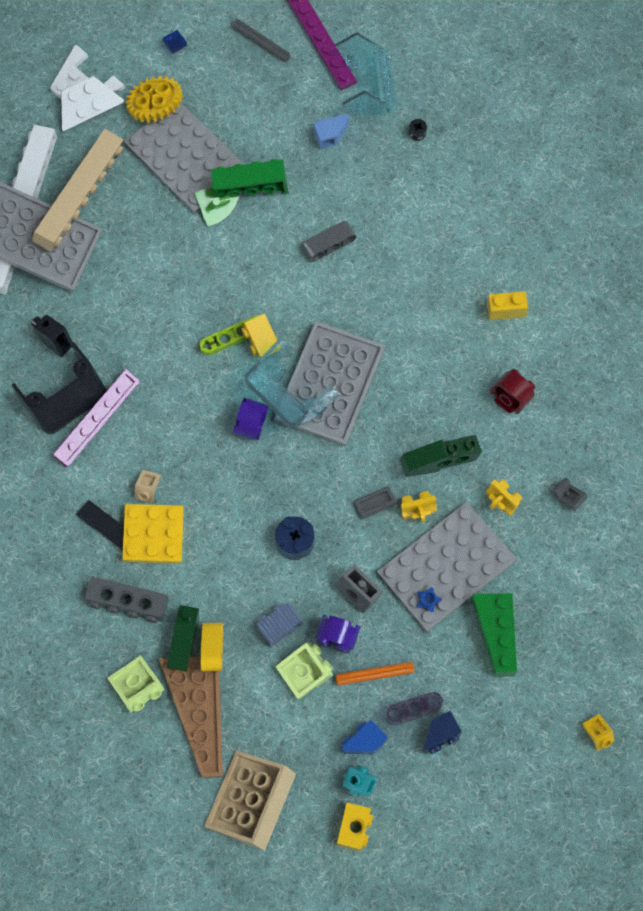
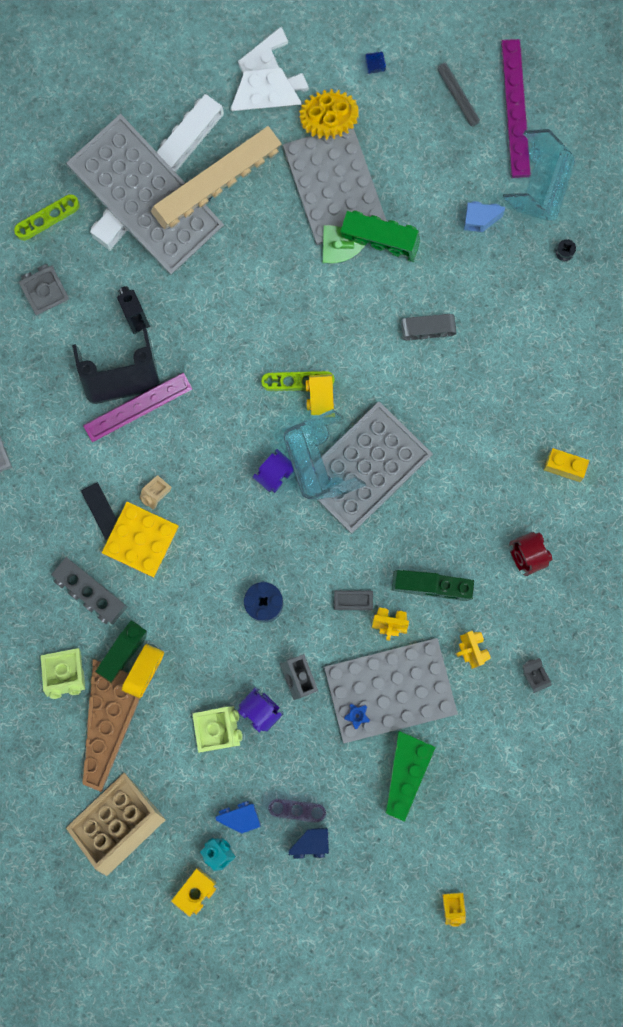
camera: 30 degrees right, 10 degrees up
(279, 623) = (213, 676): sand blue brick -> none
(374, 673) = (278, 760): orange axle -> none

